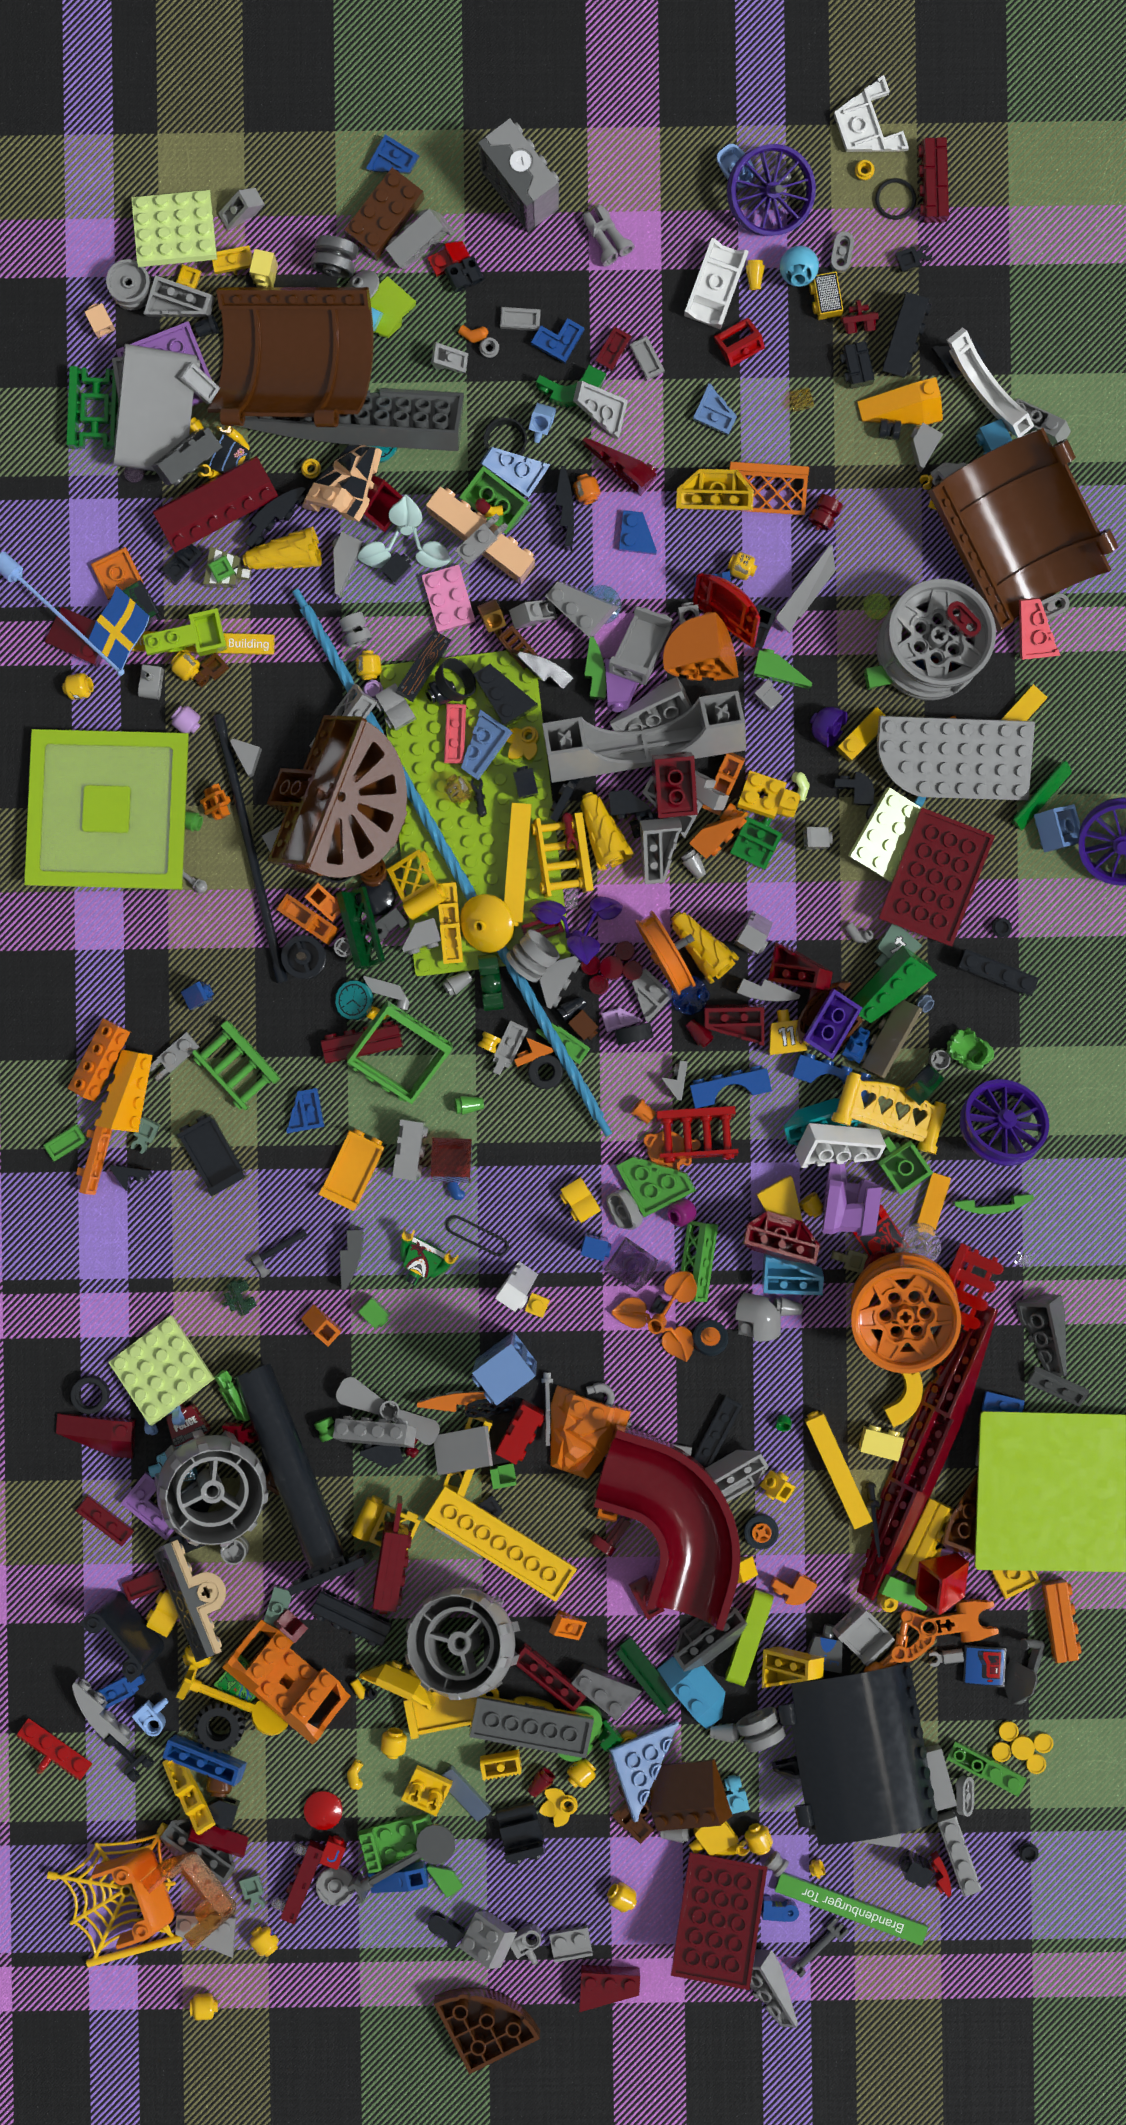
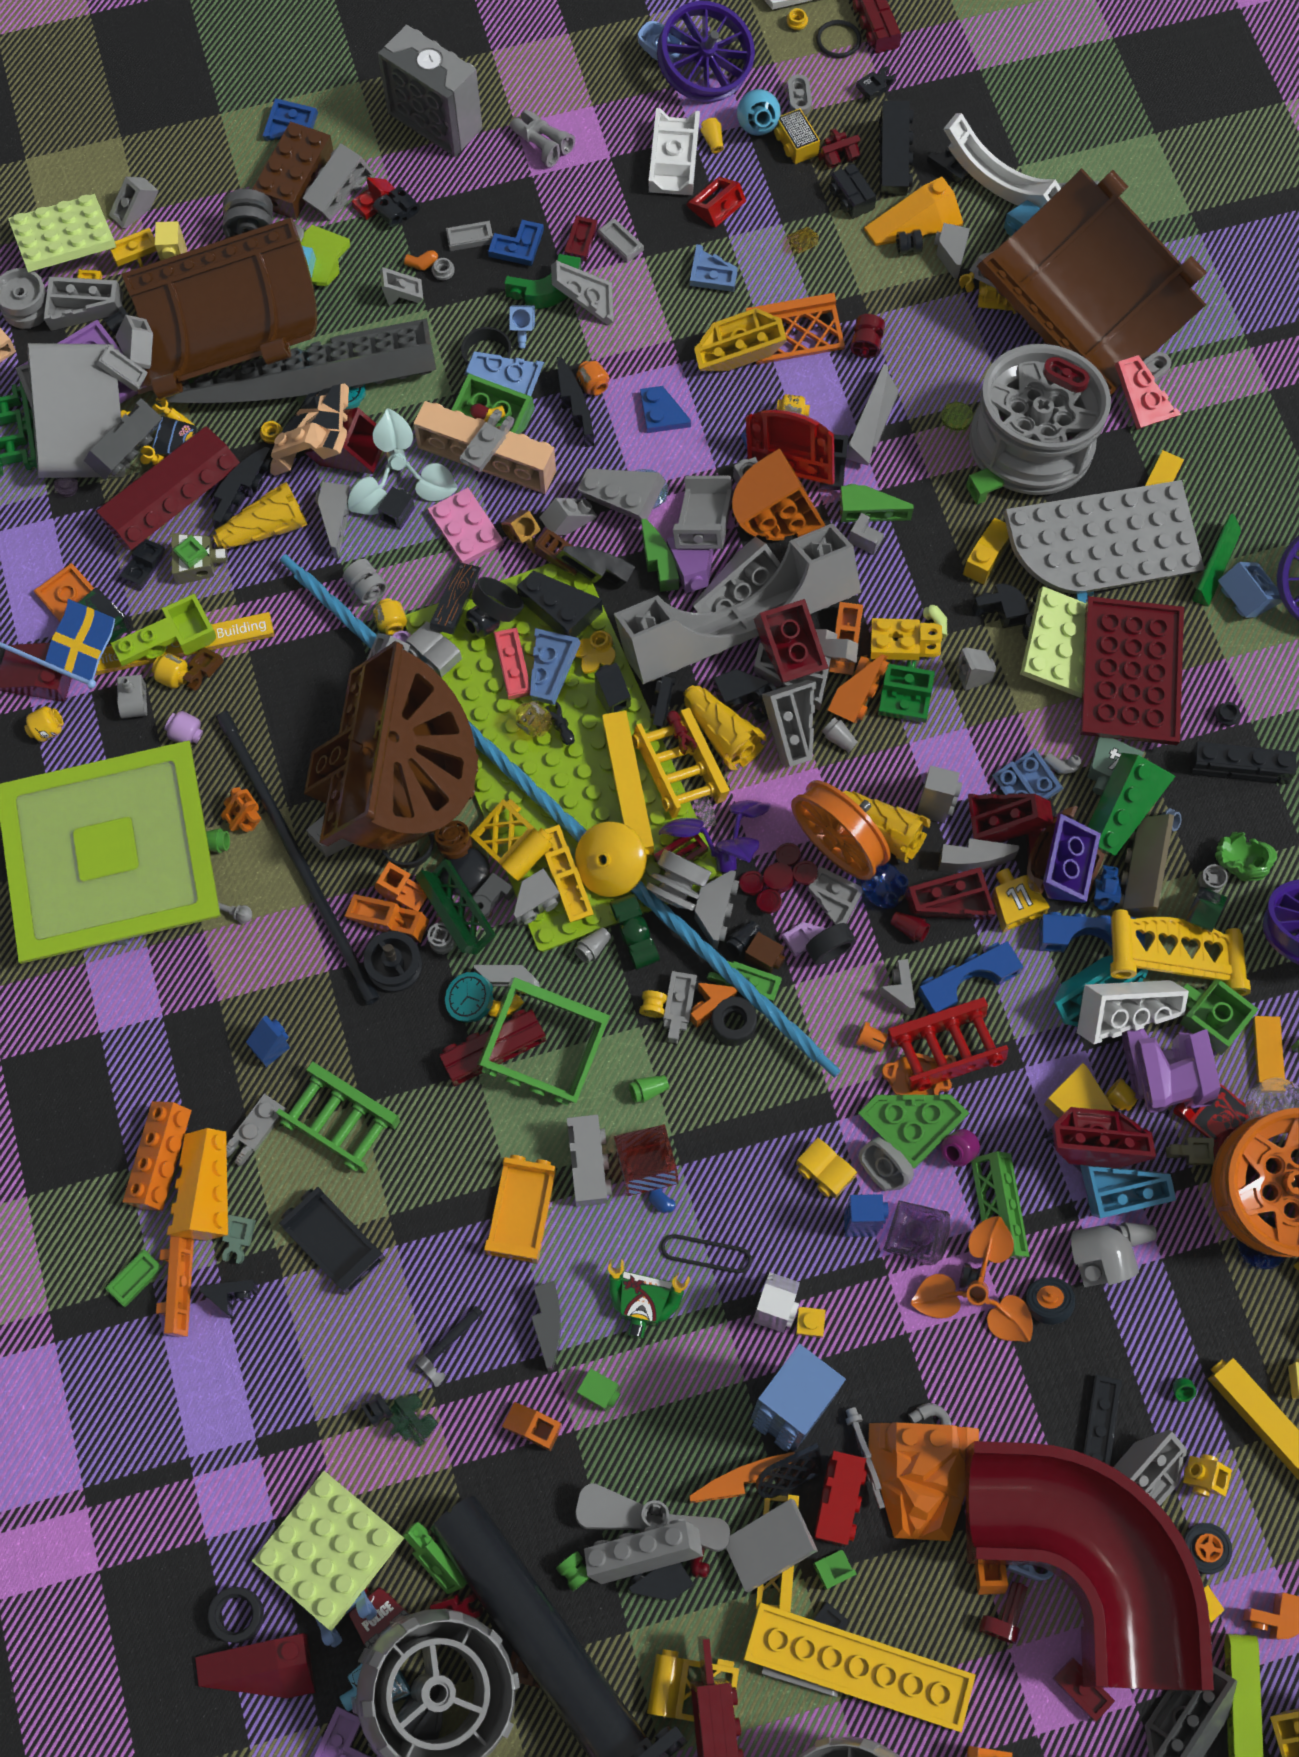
camera: 15 degrees left, 20 degrees down
(216, 354) = (136, 340): none -> light grey slope
(216, 1283) = (379, 1408): none -> black wheel
(248, 755) = (267, 747): light grey slope -> none
(306, 1112) = (442, 1153): blue wing -> none
(629, 469) = (629, 345): dark red wedge -> none
(827, 725) = (945, 545): dark purple cylinder -> none
(827, 941) = (1028, 776): none -> medium blue slope

